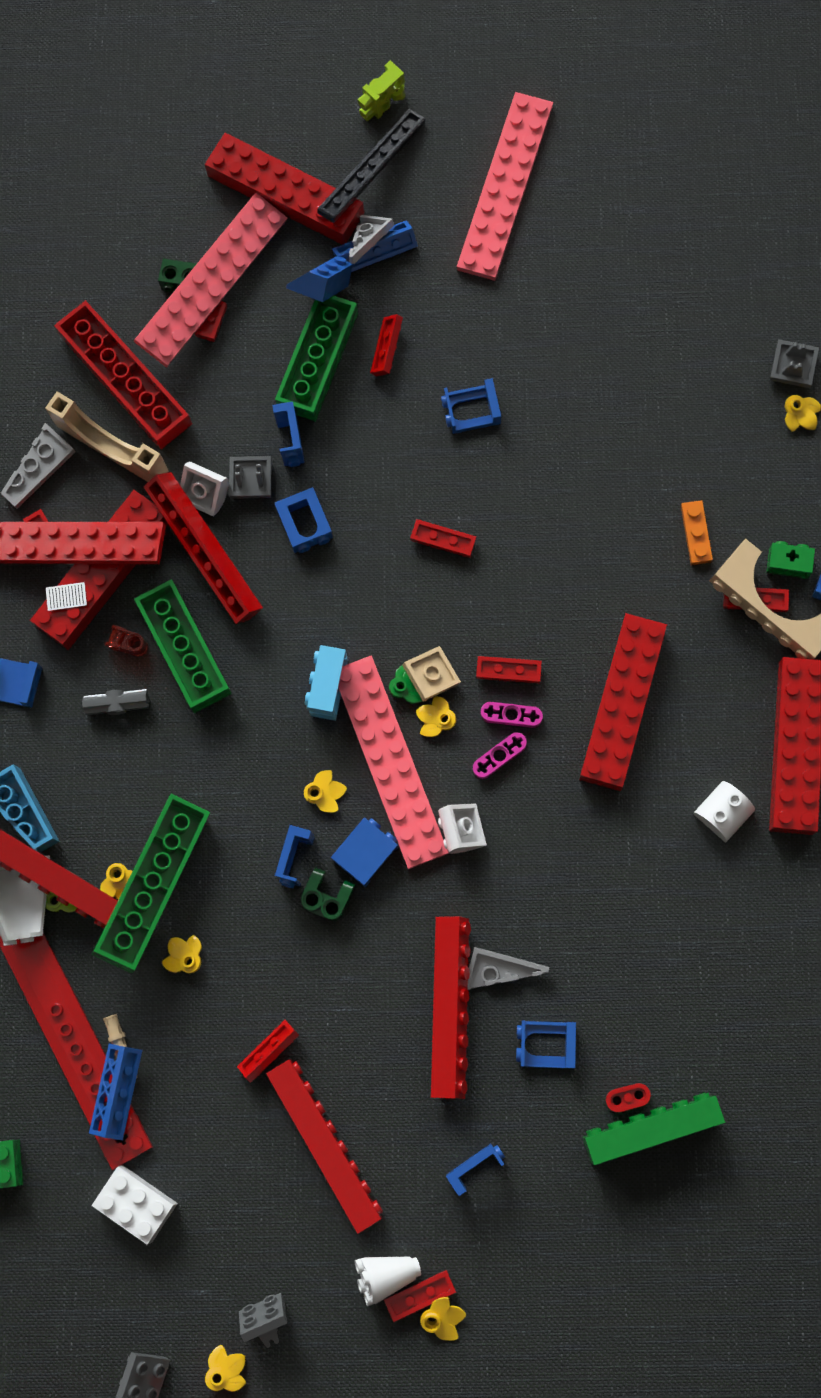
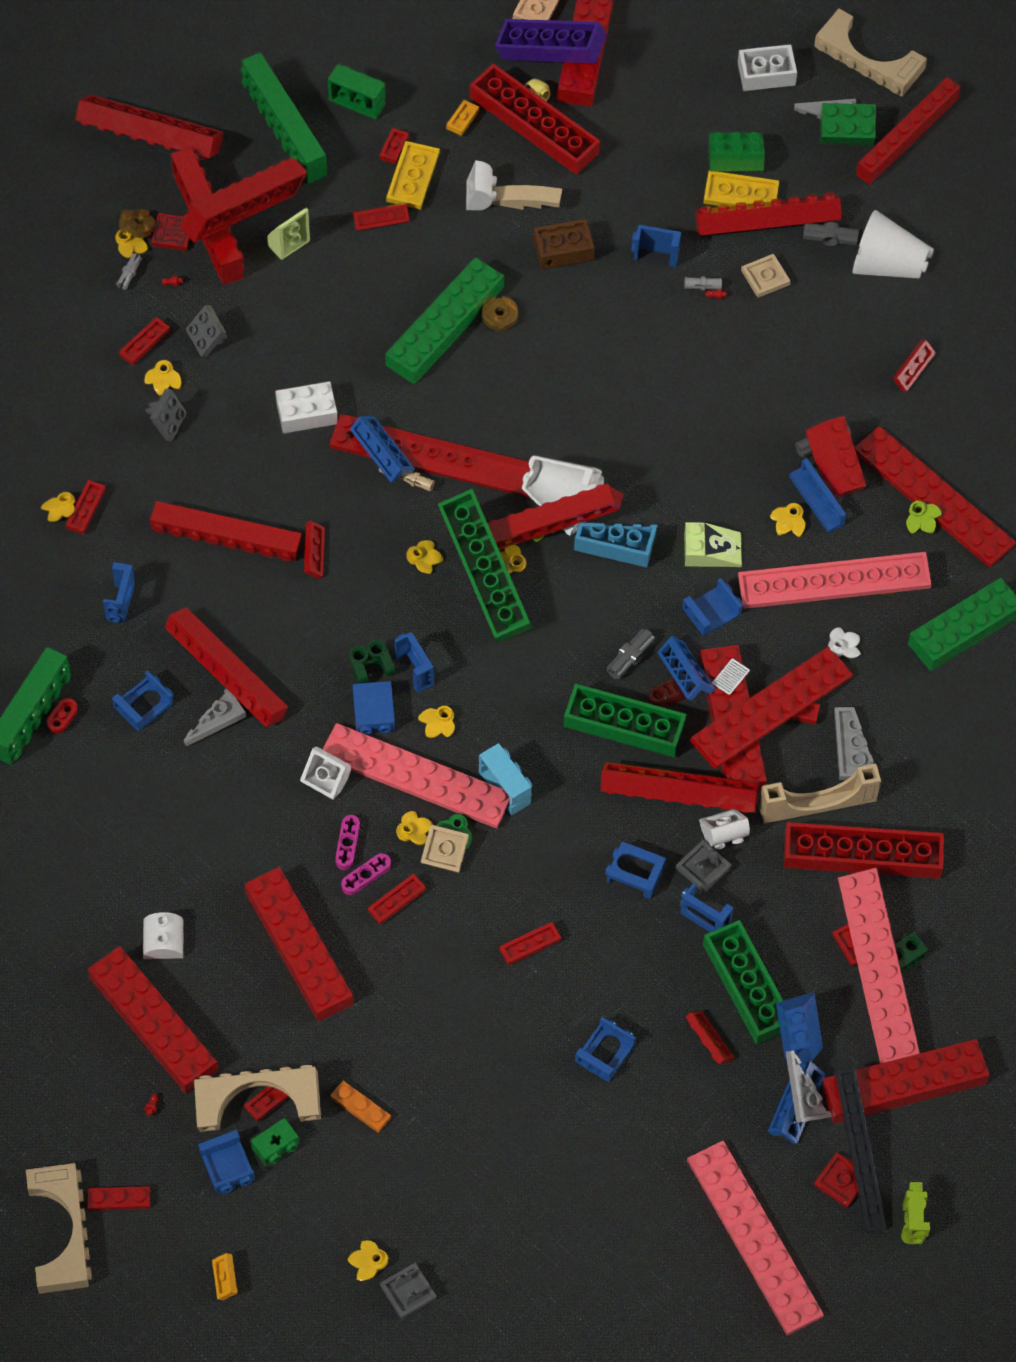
camera: 125 degrees right, 15 degrees down
(84, 639) = (686, 663): none -> blue fence
(385, 1276) = (117, 496): white cone -> none
(404, 170) = (838, 1180): none -> red tile

